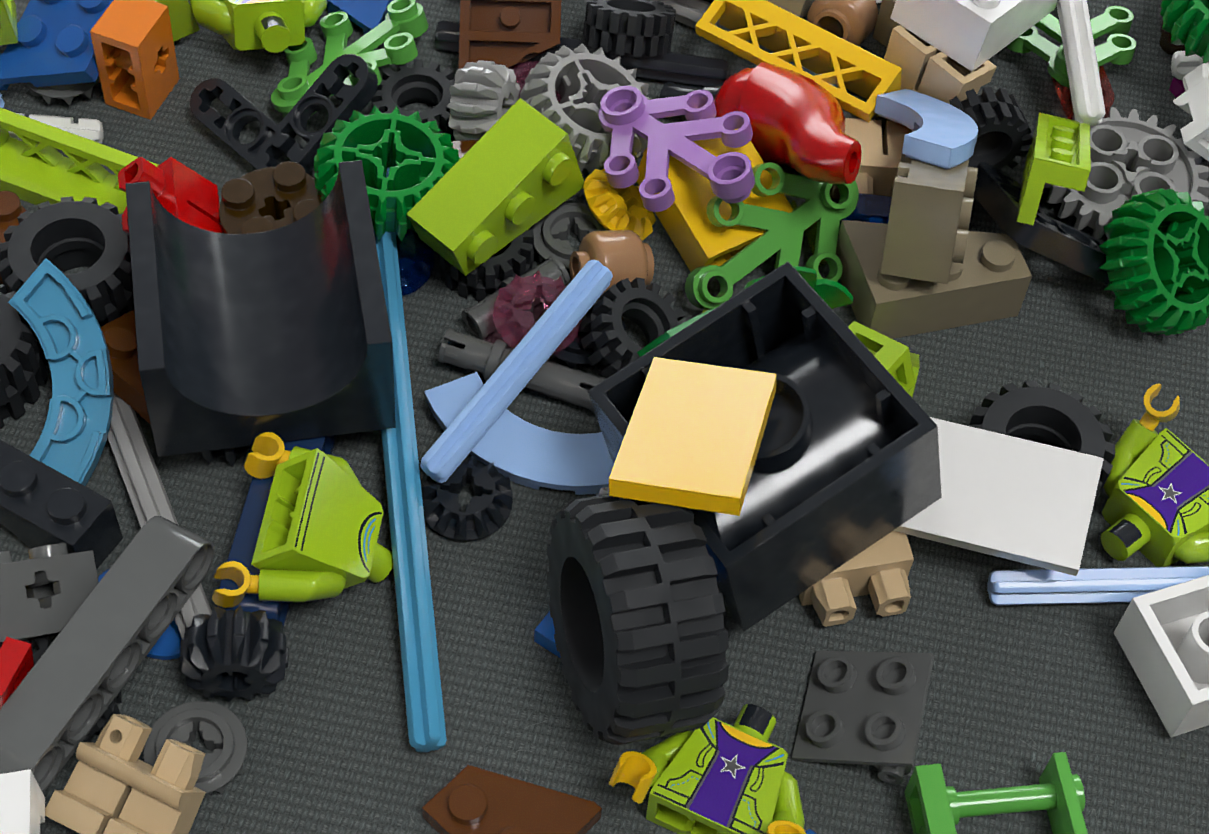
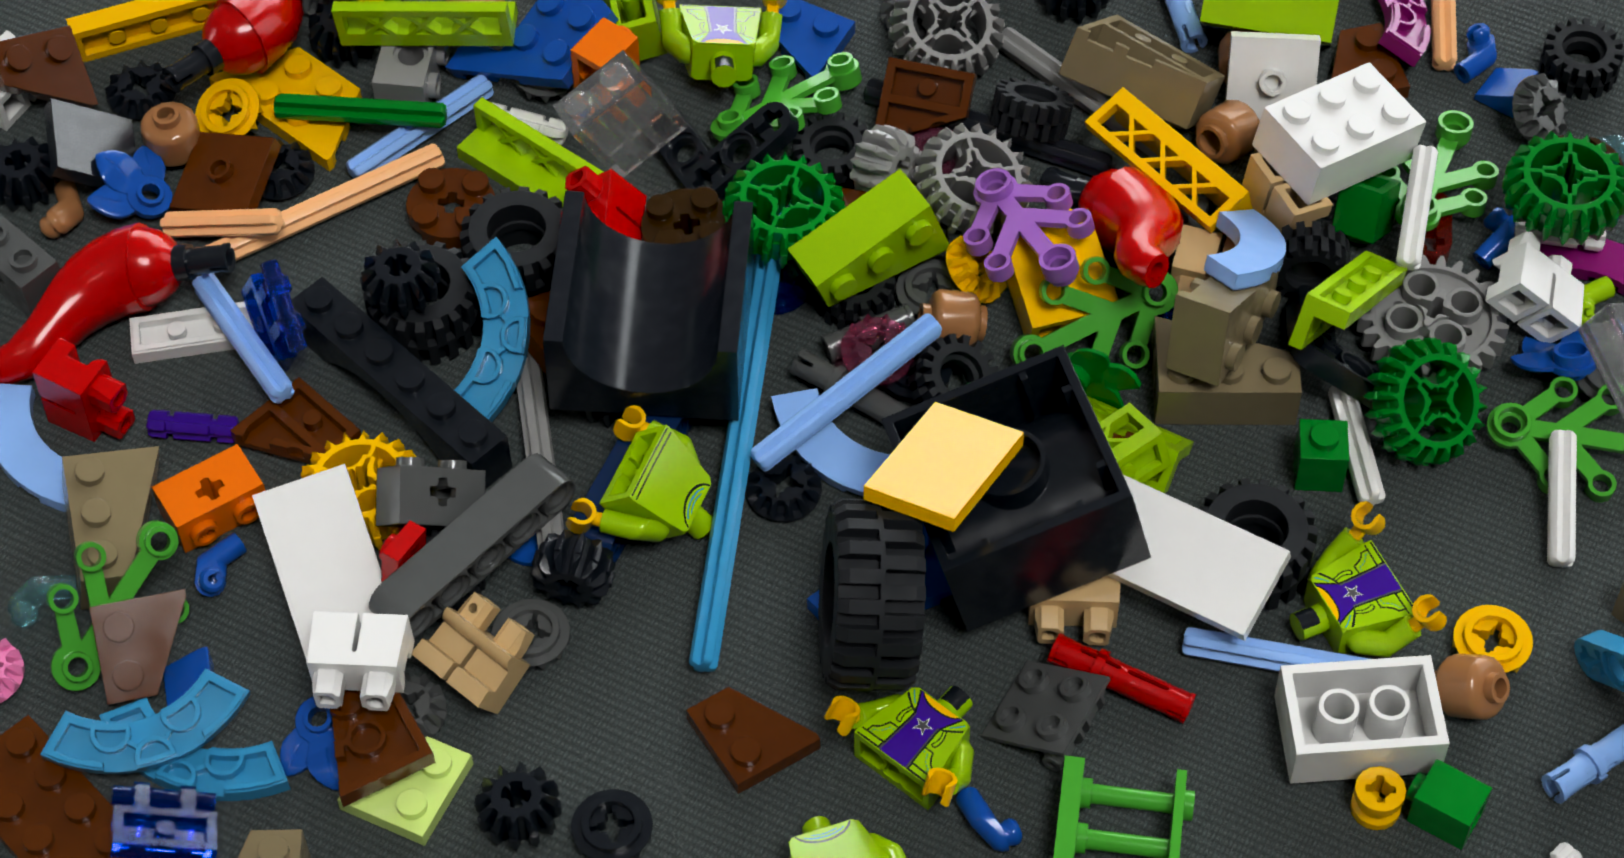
camera: 20 degrees right, 0 degrees up
(165, 95) = (620, 115): none -> clear brick
(951, 651) = (1124, 678): none -> red pin
(1022, 68) = (1367, 209): none -> green brick
(1068, 342) = (1321, 455): none -> green brick
(1096, 326) = (1362, 461): none -> white axle
(1158, 80) = (1497, 243): none -> blue arm

